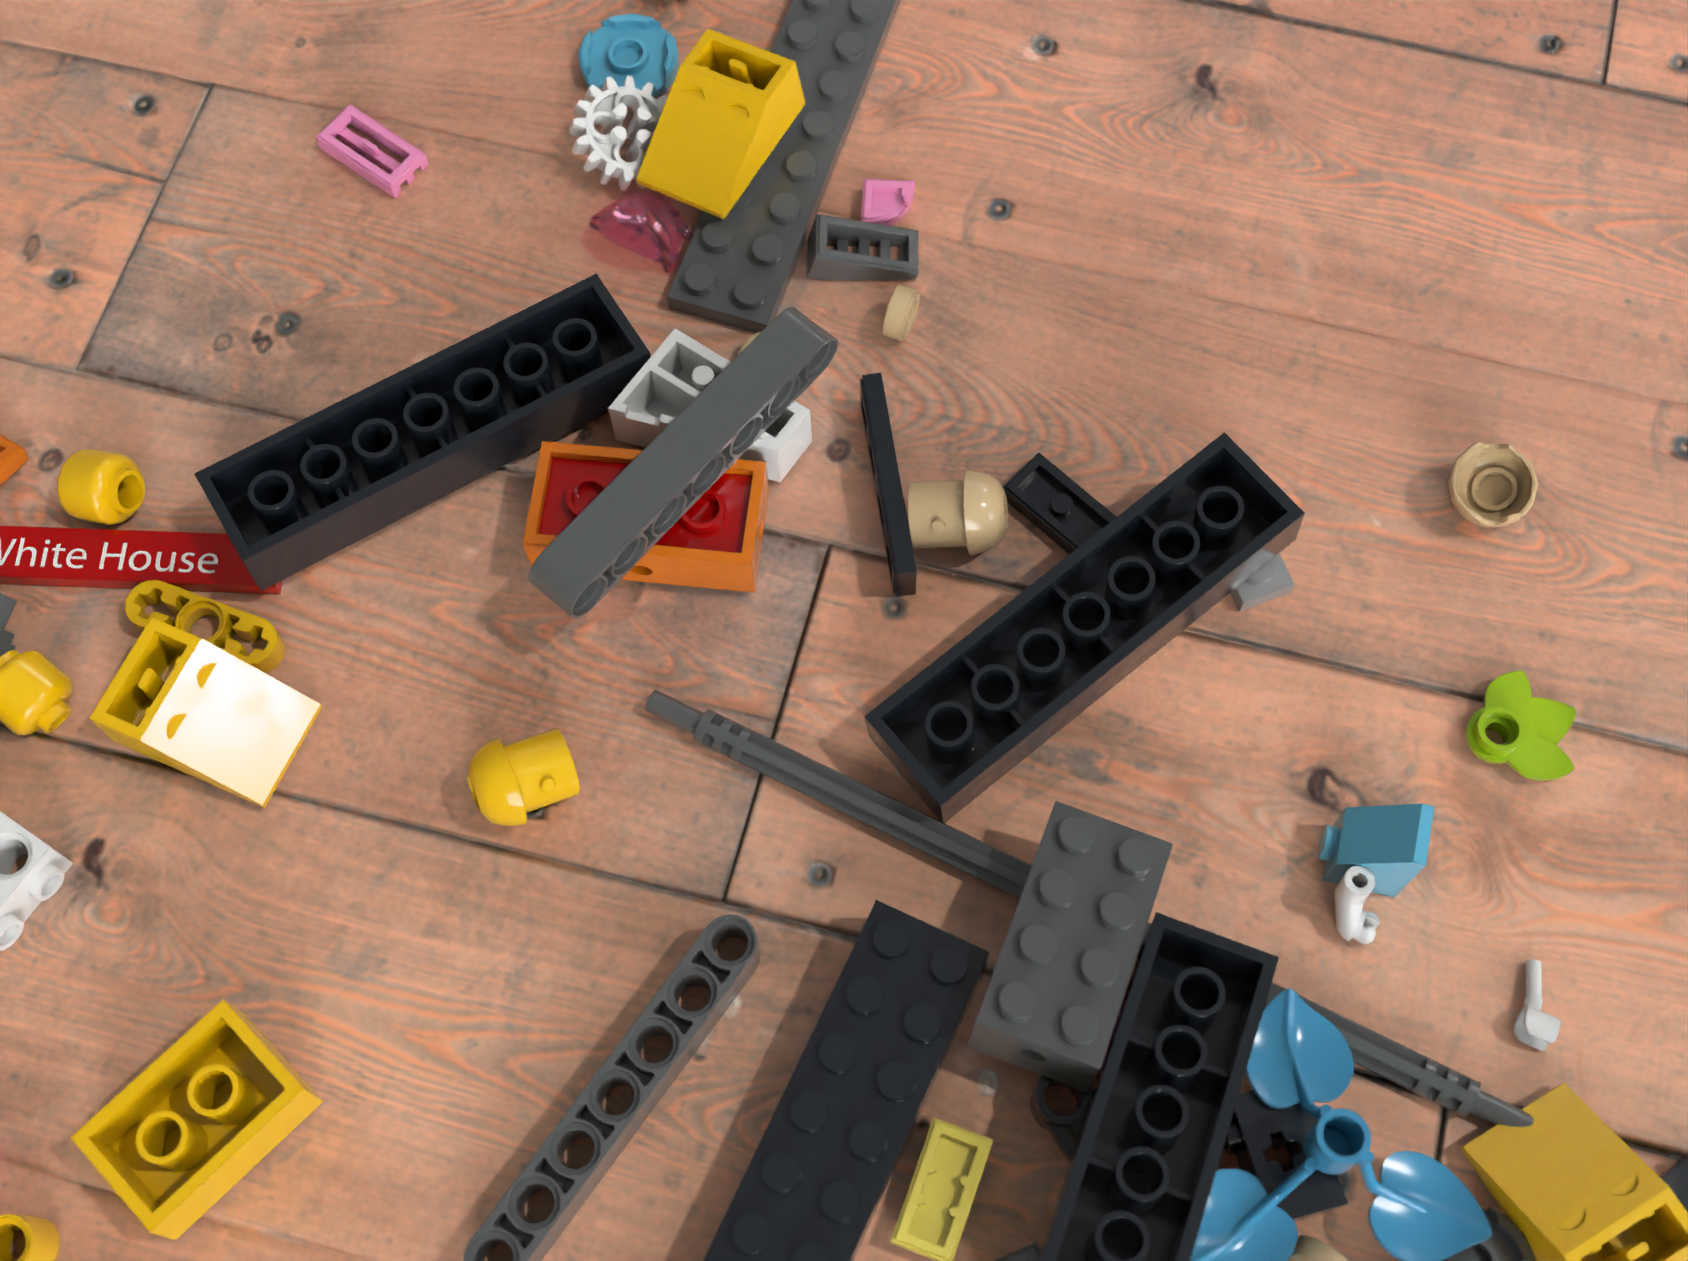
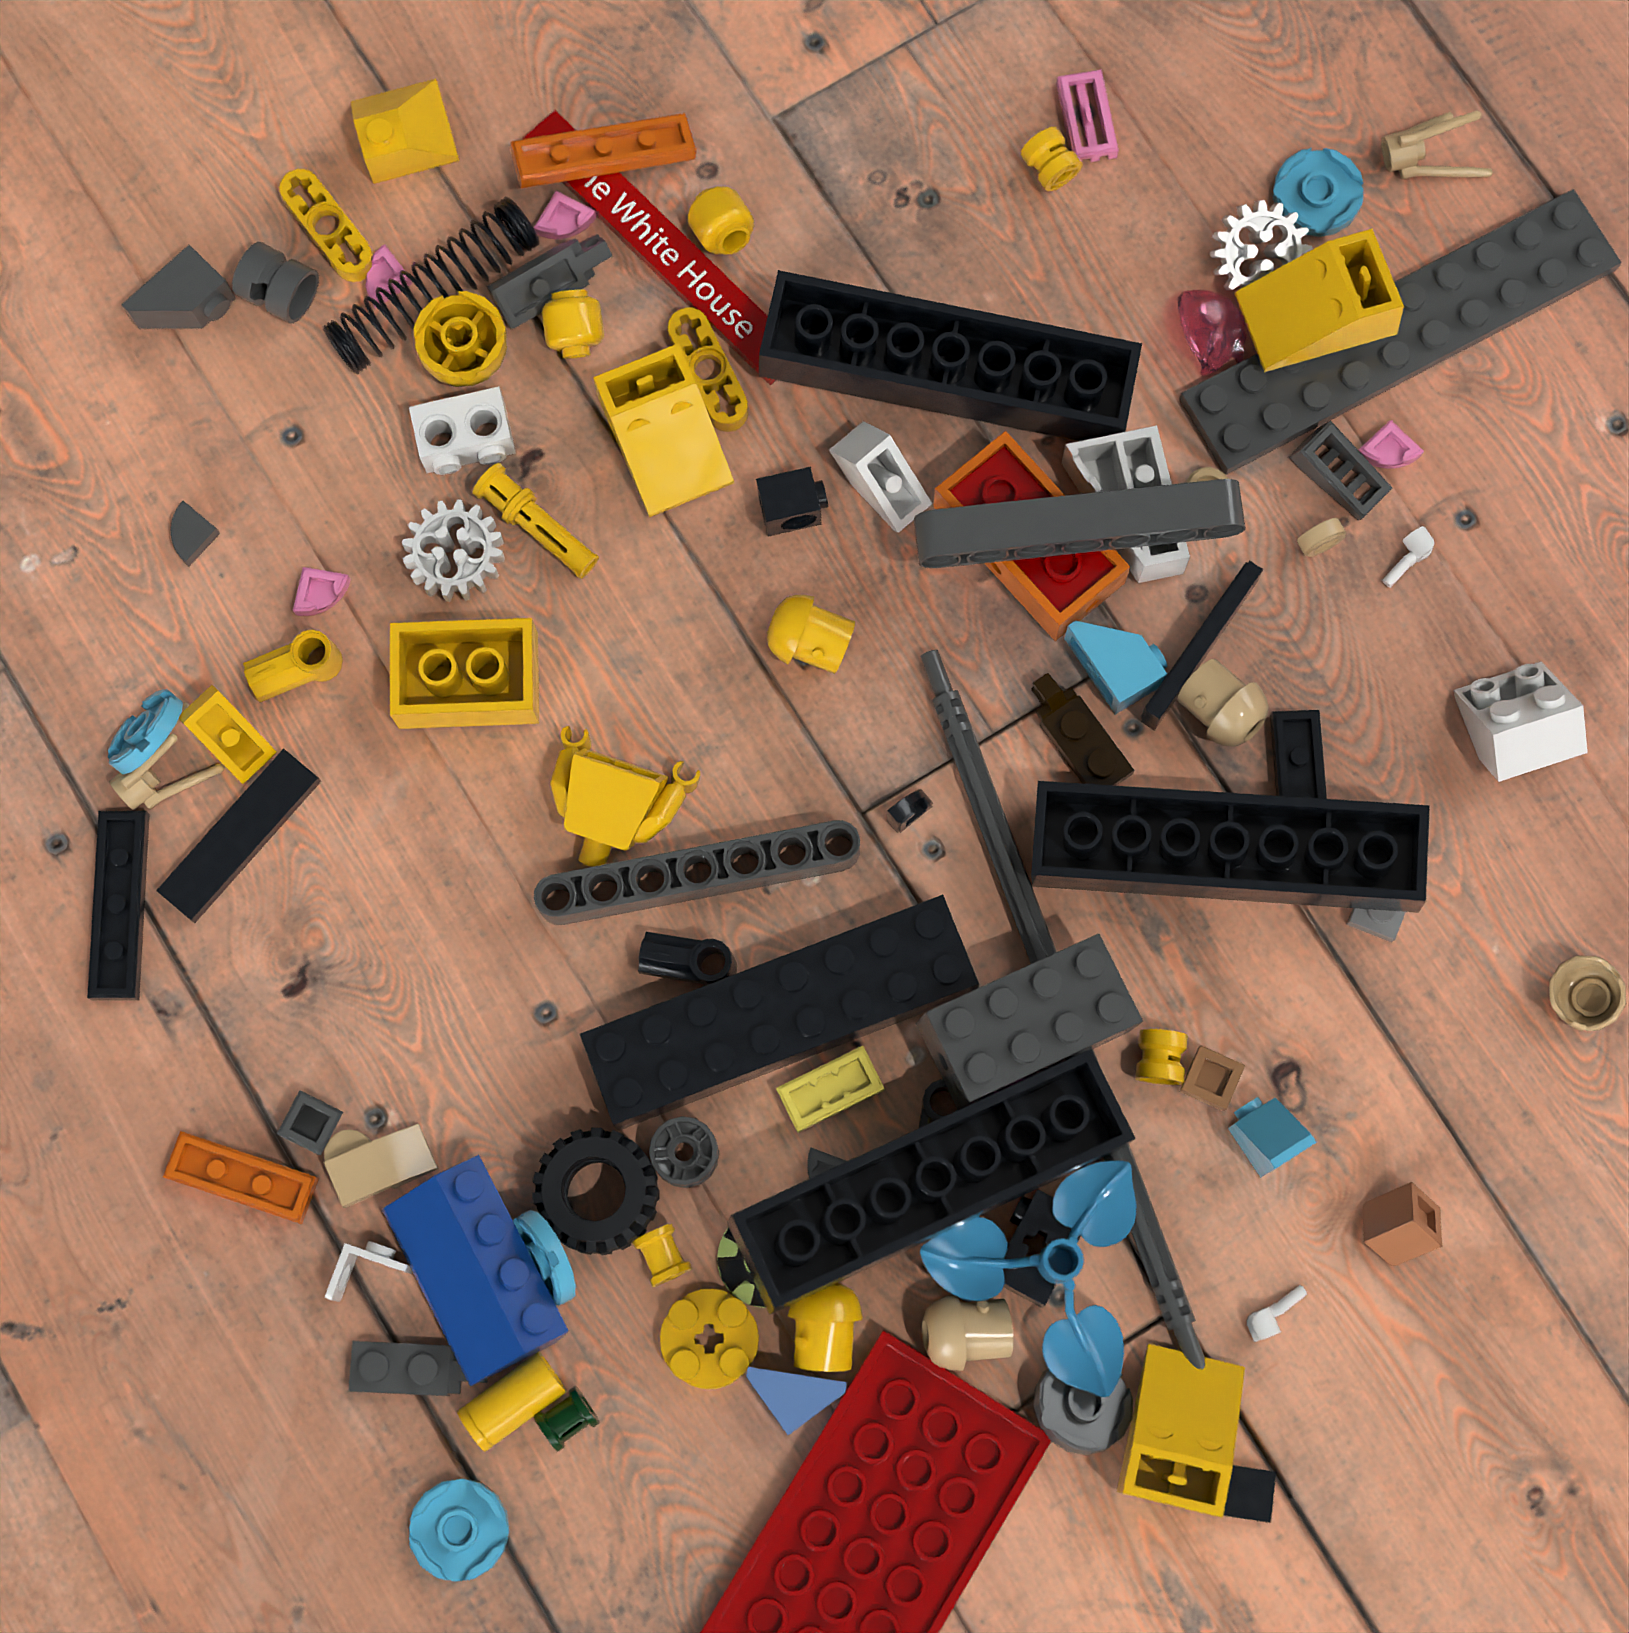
camera: 45 degrees right, 10 degrees up
(90, 977) = (431, 566): none -> white gear
(117, 914) = (520, 508): none -> yellow pin
(371, 202) = (1051, 158): none -> yellow wheel
(392, 675) = (791, 501): none -> black brick
(458, 580) = (881, 475): none -> white slope
(466, 1107) = (612, 799): none -> yellow torso
(678, 1200) = (682, 958): none -> black piece
(765, 858) = (908, 810): none -> black tile
(827, 561) = (1117, 662): none -> medium azure slope
(853, 653) = (1079, 735): none -> dark brown hinge
(985, 255) = (1420, 547): none -> white hand
(1208, 868) = (1161, 1056): none -> yellow wheel
(1211, 318) = (1522, 720): none -> white slope
(1270, 846) = (1212, 1078): none -> medium nougat plate
(1349, 901) = (1223, 1154): white arm -> none
(1527, 727) = (1450, 1158): lime plate -> none
(1555, 821) = (1402, 1224): none -> nougat panel

